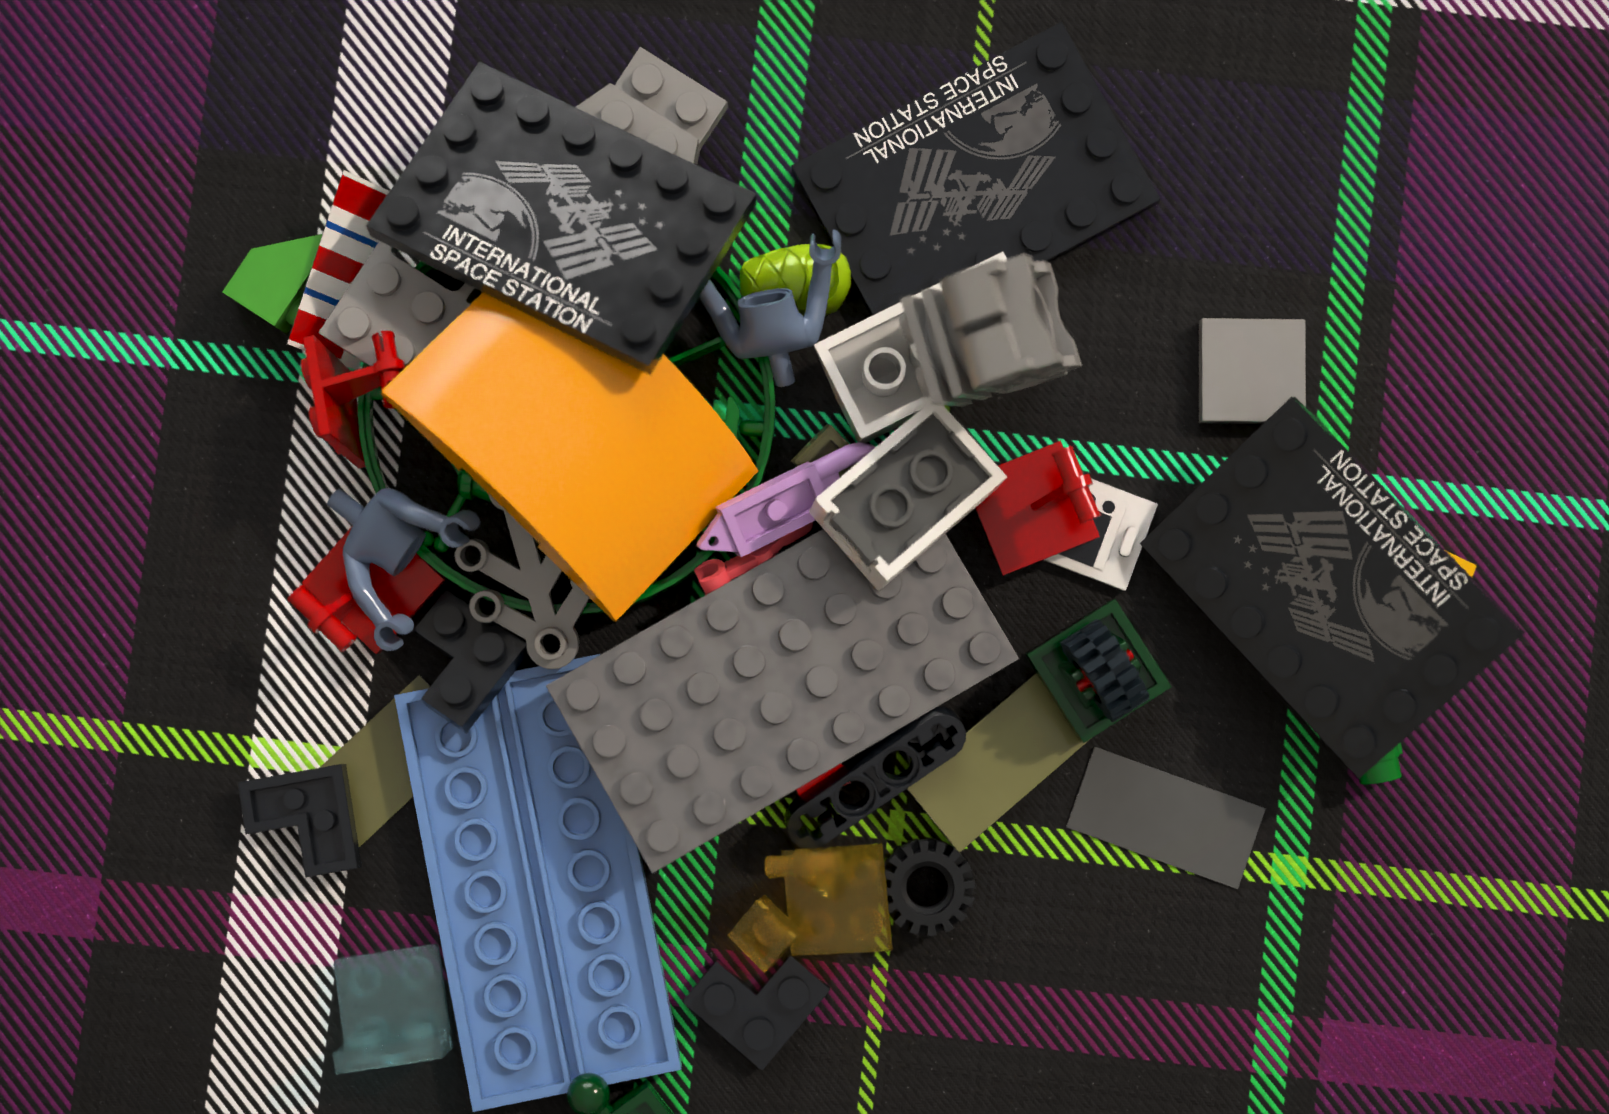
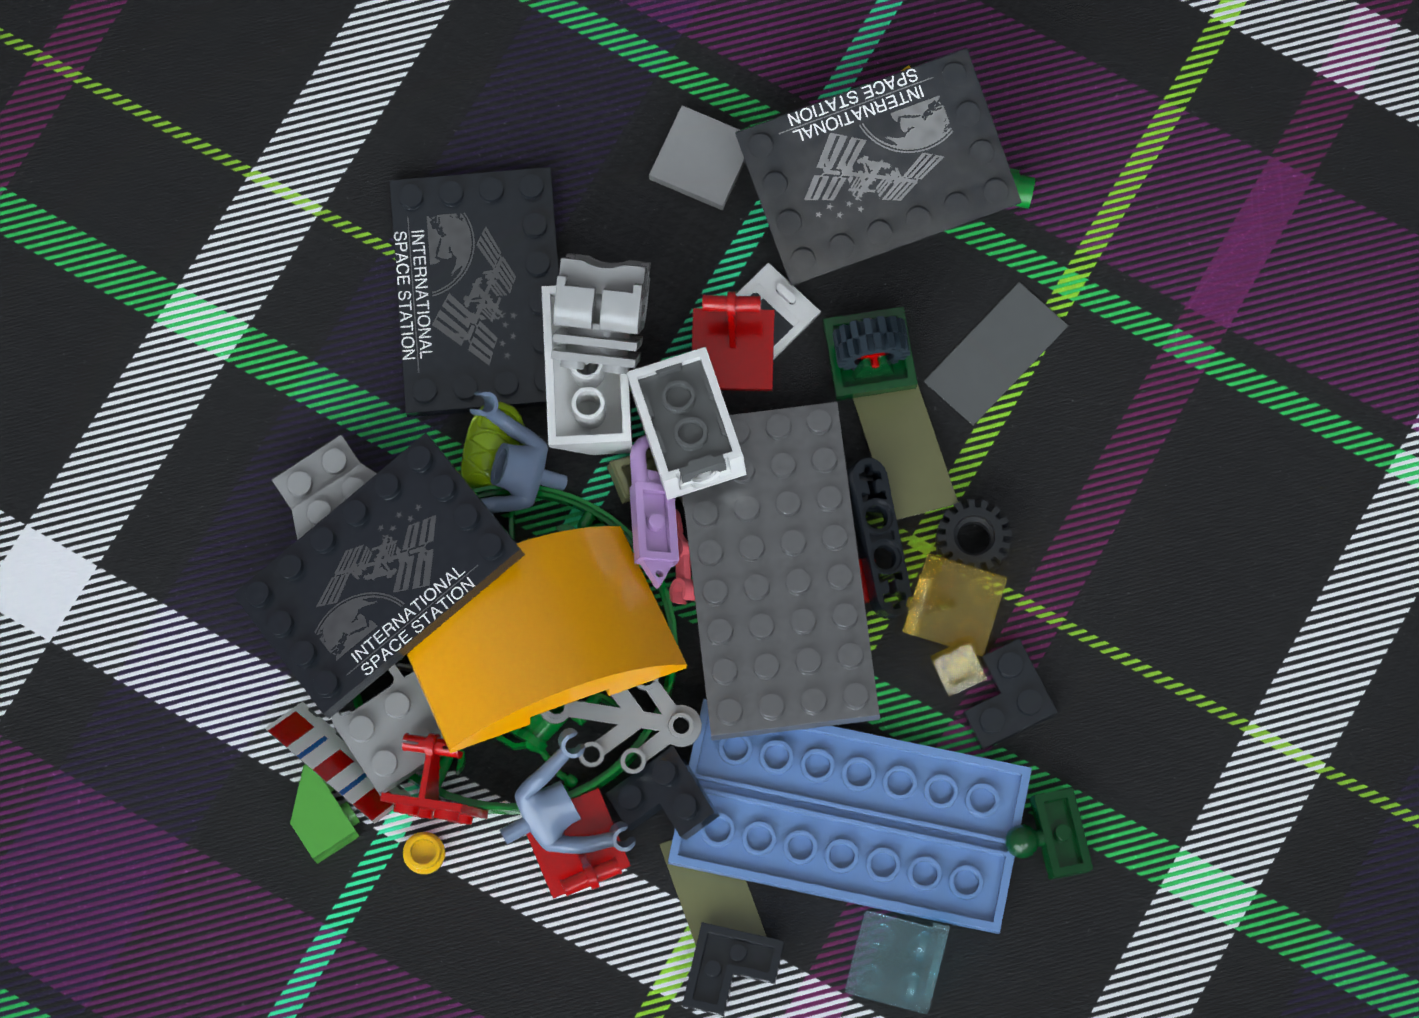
camera: 65 degrees left, 10 degrees down
(290, 414) = (424, 853): none -> yellow plate

